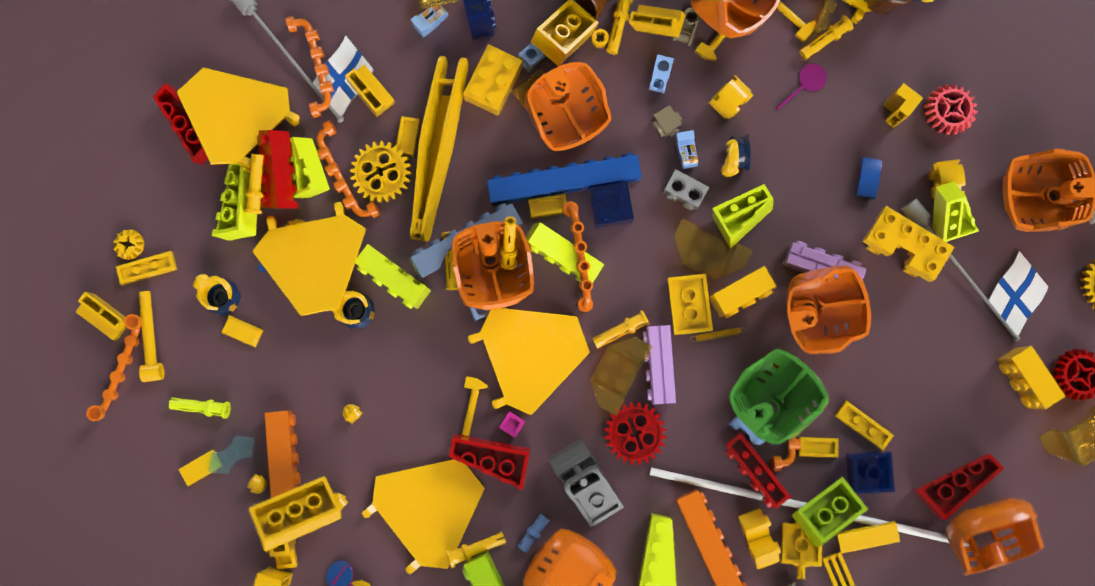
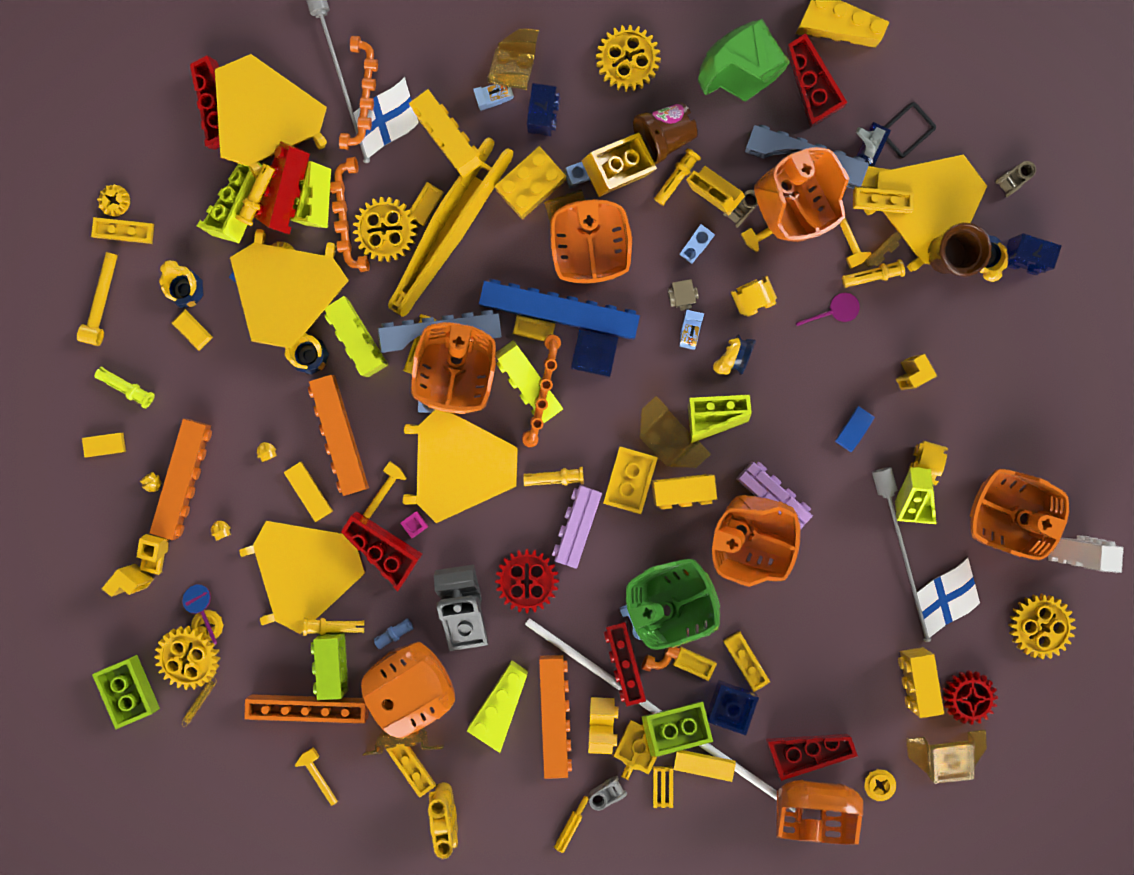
camera: 20 degrees right, 5 degrees up
(97, 412) = (89, 281): orange bar -> none
(101, 315) = (63, 260): yellow piece -> none
(223, 461) = (147, 442): clear light blue tile -> none
(295, 513) = (174, 526): yellow brick -> none
(370, 90) = (406, 143): yellow piece -> none
(402, 66) = (446, 133): none -> yellow wedge
(404, 434) = (308, 491): none -> yellow tile
(411, 370) = (338, 434): none -> orange brick
(509, 249) = (477, 357): yellow pin -> none
(594, 38) = (647, 181): yellow bush -> none
(617, 372) = (533, 517): clear yellow piece -> none
(688, 185) = (677, 365): light grey brick -> none
(705, 336) = (646, 521): yellow piece -> none
(925, 249) = (875, 523): yellow piece -> none
(963, 118) = (967, 401): coral gear -> none
(1042, 485) = (877, 793): none -> yellow gear

